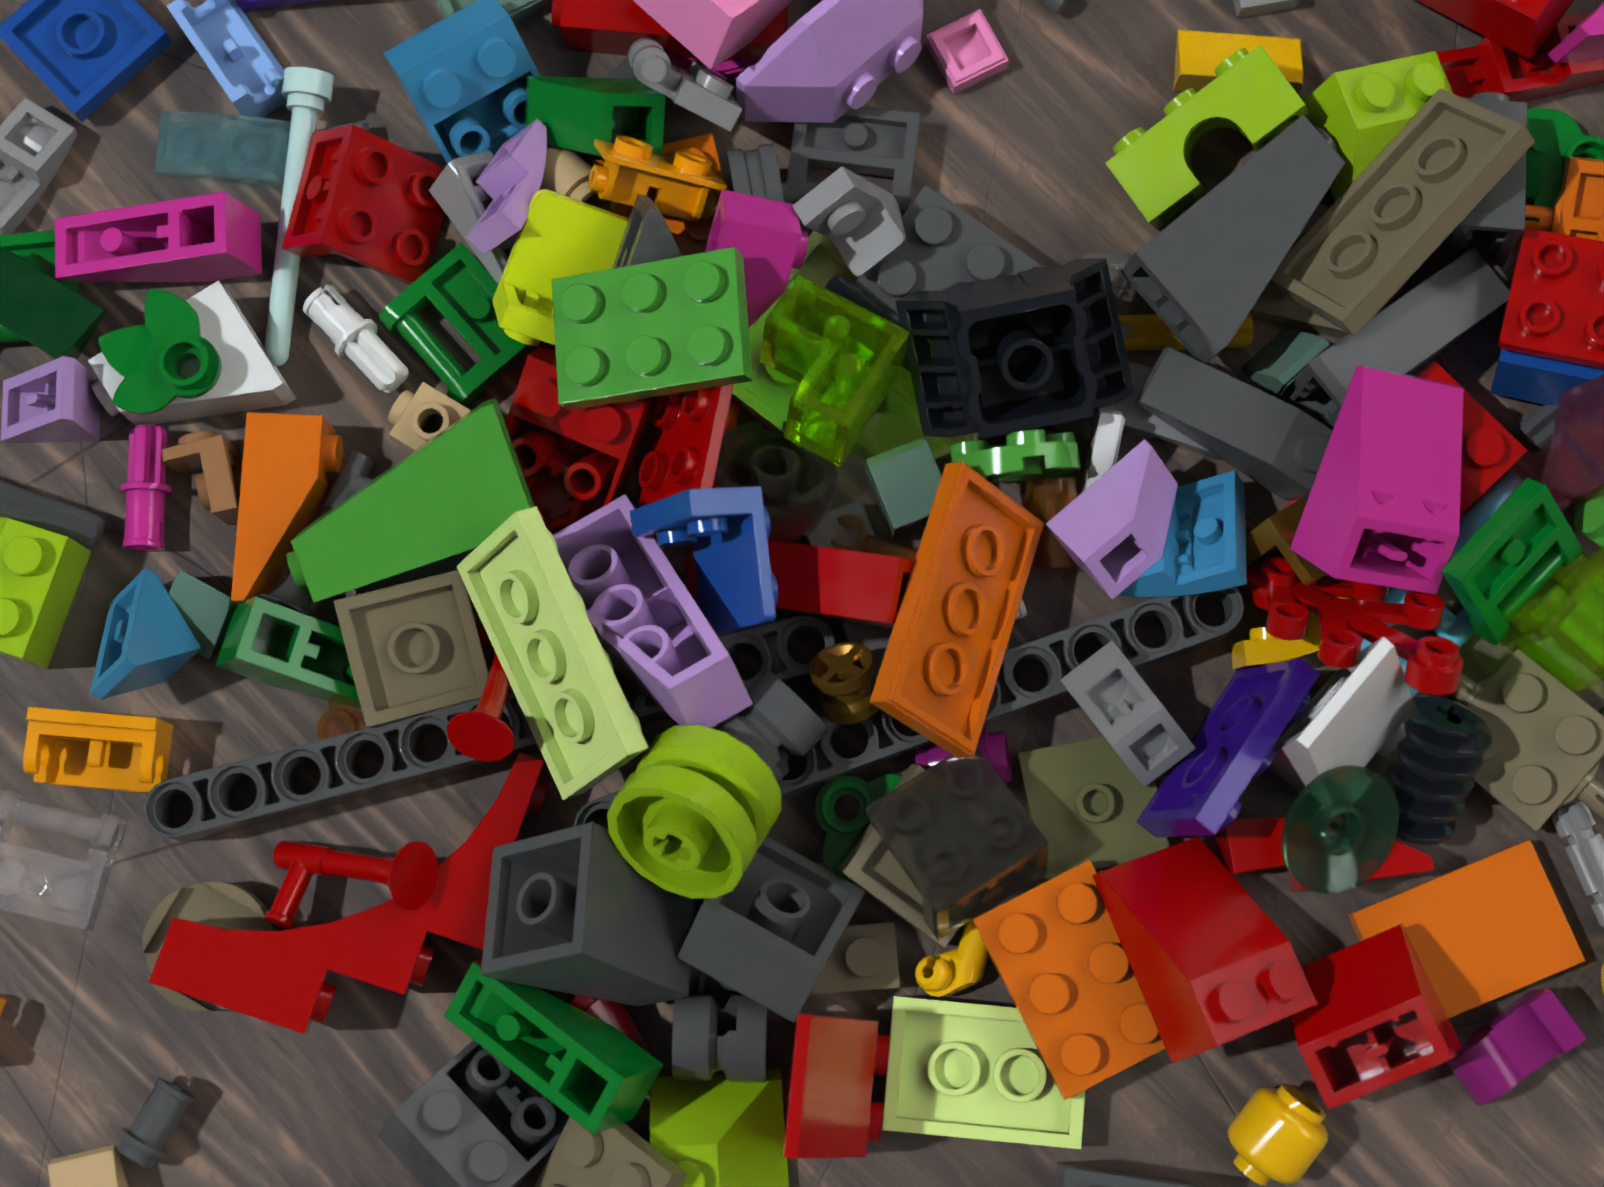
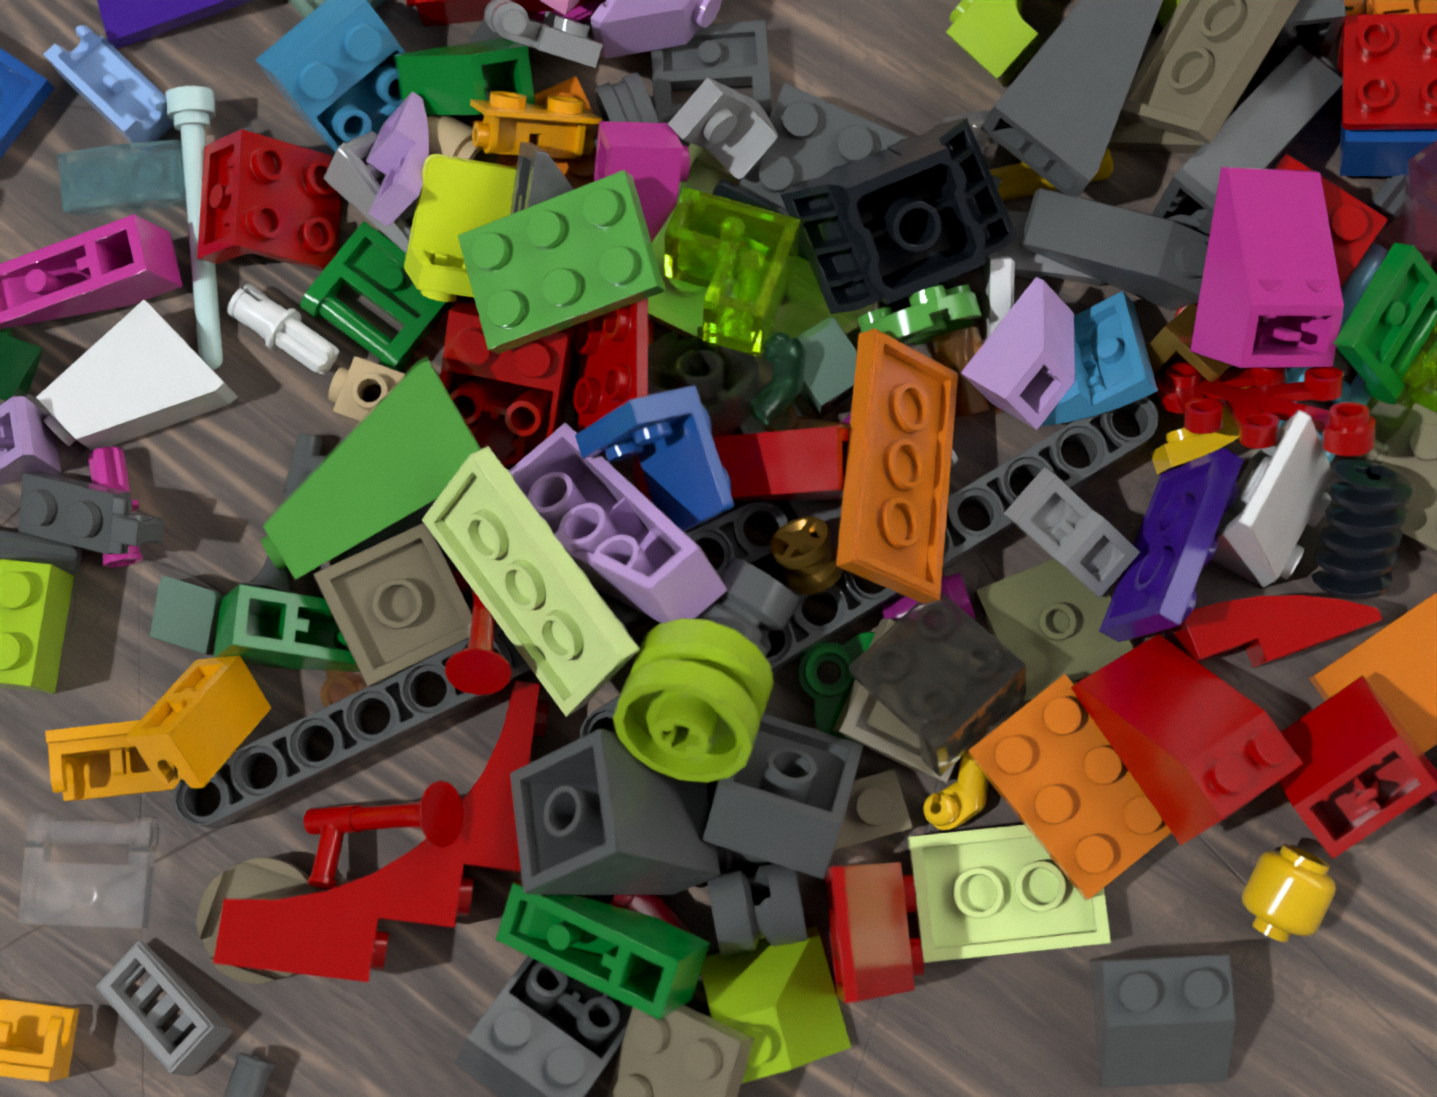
camera: 10 degrees left, 0 degrees up
(112, 491) = (83, 514): none -> dark grey hinge
(125, 1036) = (199, 1043): none -> light grey slope
(141, 639) = (139, 647): dark azure slope -> none
(154, 353) = (98, 379): green plate -> none
(187, 728) = (200, 720): none -> light orange hinge
(221, 466) = (184, 487): medium nougat bracket -> none
(281, 490) = (242, 485): orange slope -> none
(864, 493) = (787, 379): none -> clear green arm
(1283, 360) = (1146, 181): sand green slope -> none
(1340, 829) = (1291, 598): clear green dish -> none

